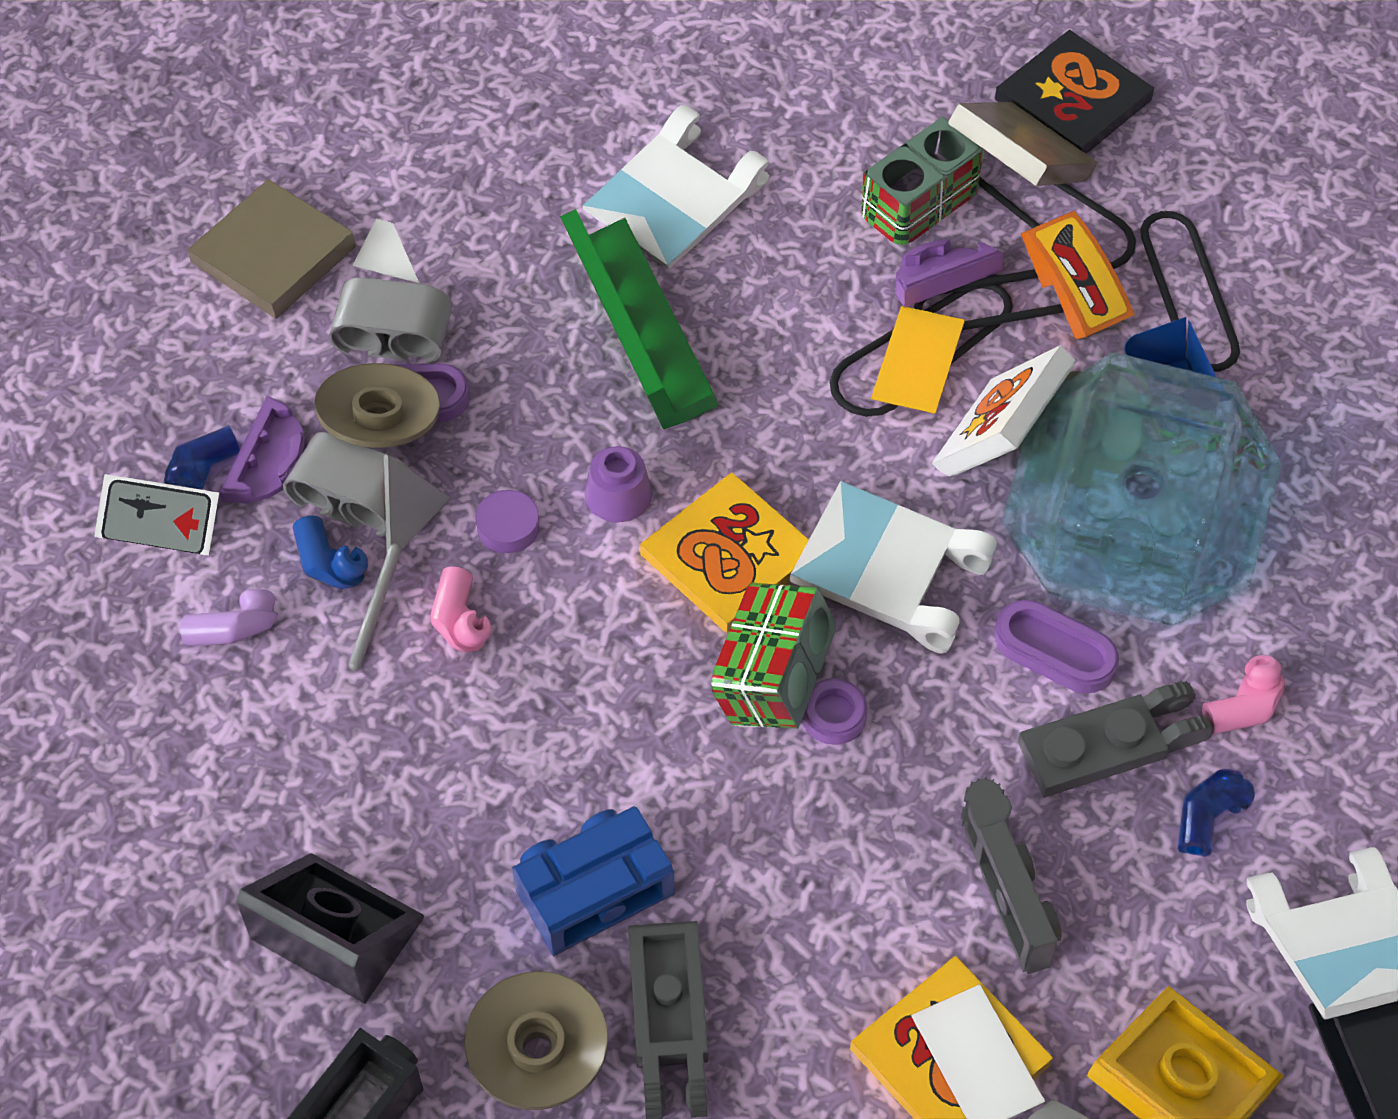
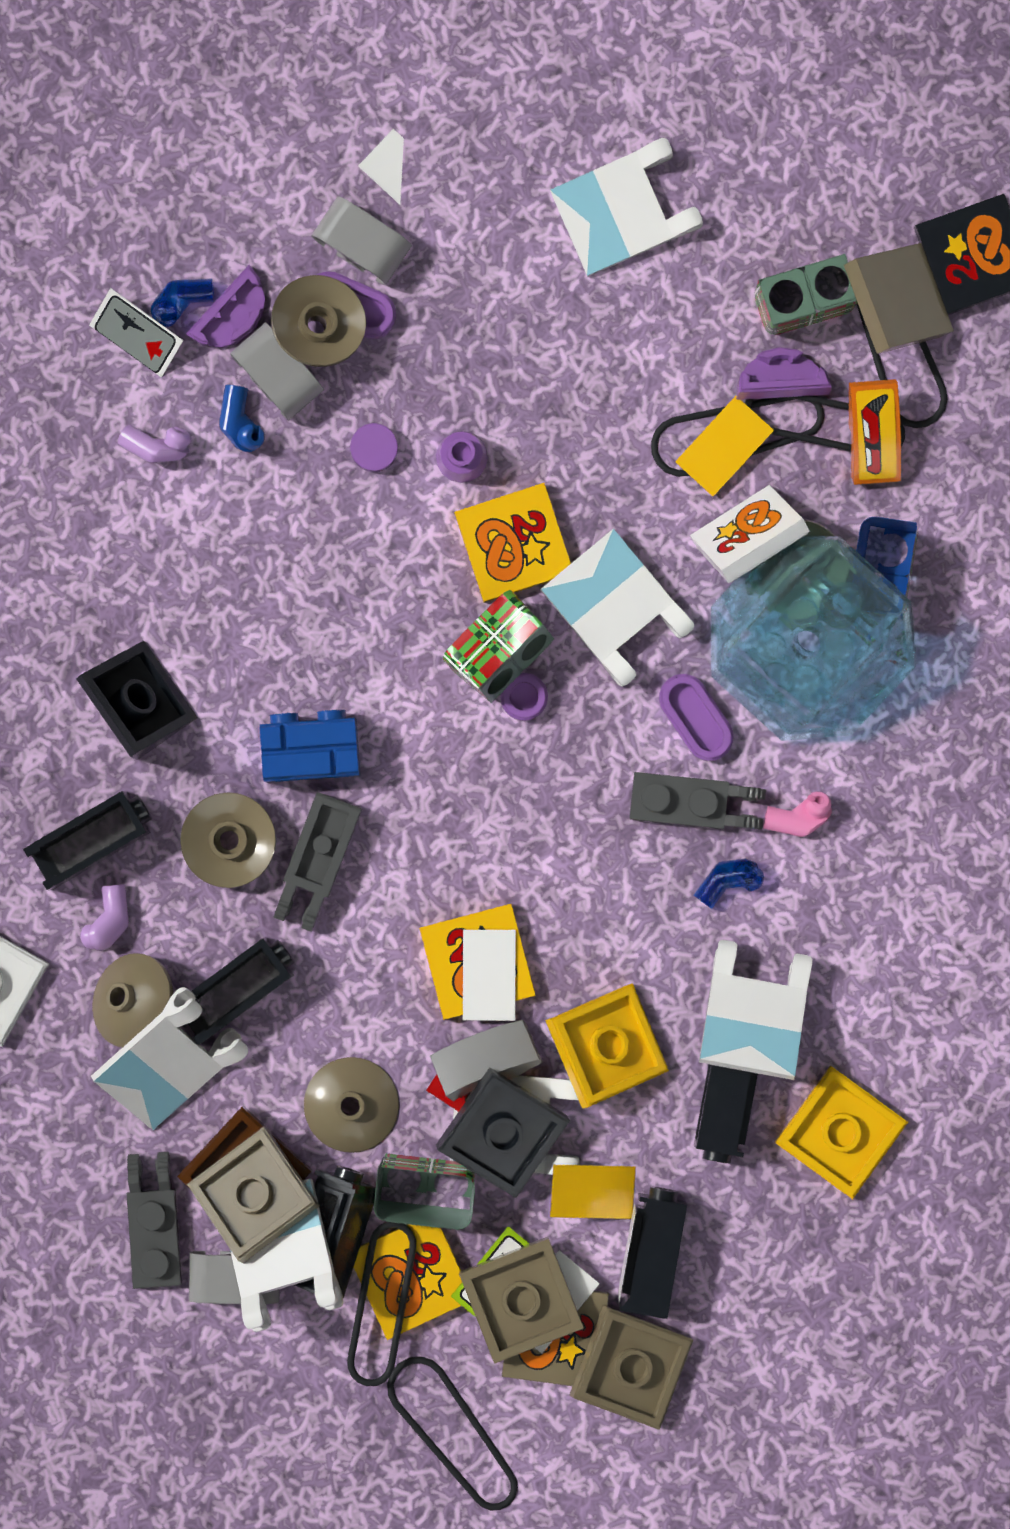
camera: 30 degrees right, 30 degrees up
(272, 248) = (304, 125): dark tan tile -> none
(408, 508) = (308, 408): light grey piece -> none
(452, 616) = (305, 509): bright pink arm -> none
(642, 320) = (539, 320): green fence -> none
(1009, 876) = (573, 864): dark grey hinge -> none
(1144, 231) = (977, 477): black piece -> none

